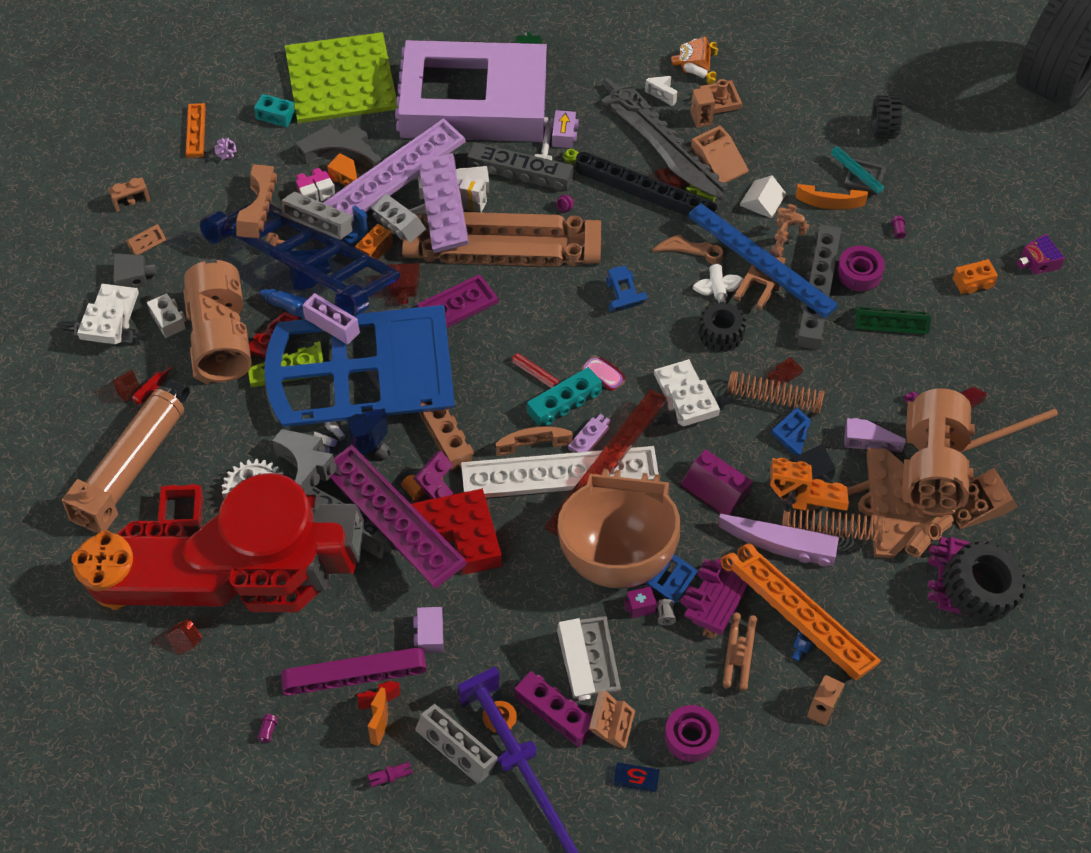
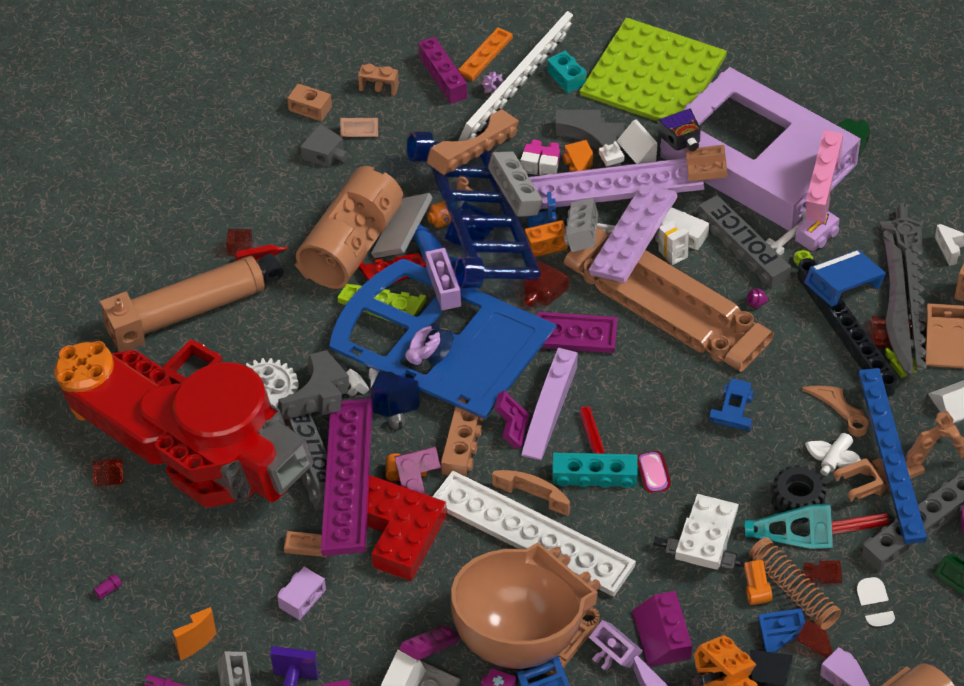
camera: 40 degrees right, 5 degrees down
(86, 242) = (309, 102): none -> nougat brick
(108, 317) = (269, 178): white piece -> none
(166, 315) = (319, 198): white brick -> none
(175, 159) = (442, 70): none -> magenta brick
(243, 136) = (517, 77): none -> white plate
(256, 298) = (402, 226): none -> light grey tile
(274, 272) = (438, 215): none -> orange head
(353, 671) = (212, 586): magenta beam -> none
(366, 375) = (430, 344): none -> piece
(370, 153) = (611, 154): none -> white tile
(384, 134) = (638, 143): none -> white slope
(392, 691) = (223, 619): red slope -> none
(398, 589) = (303, 543): none -> nougat plate
(416, 105) = (680, 130): none -> black torso
(454, 120) = (706, 163): none -> nougat slope
(473, 393) = (516, 419): none -> magenta plate
(487, 367) = (550, 403): none -> lavender slope
(546, 64) = (820, 186): none -> bright pink arch
(569, 602) = (429, 642): none -> magenta plate
(590, 435) = (590, 517): lavender hinge -> none
(617, 152) = (841, 274): none -> blue panel
(618, 446) = (618, 534): clear red plate -> none
(697, 516) = (615, 645): none -> lavender brick
(755, 412) = (758, 589): none -> orange piece
(758, 342) = (820, 527): none -> teal plate
(775, 324) = (860, 523): none -> red axle
(823, 423) = (815, 639): none -> clear red tile
(826, 367) = (873, 591): none -> white sticker

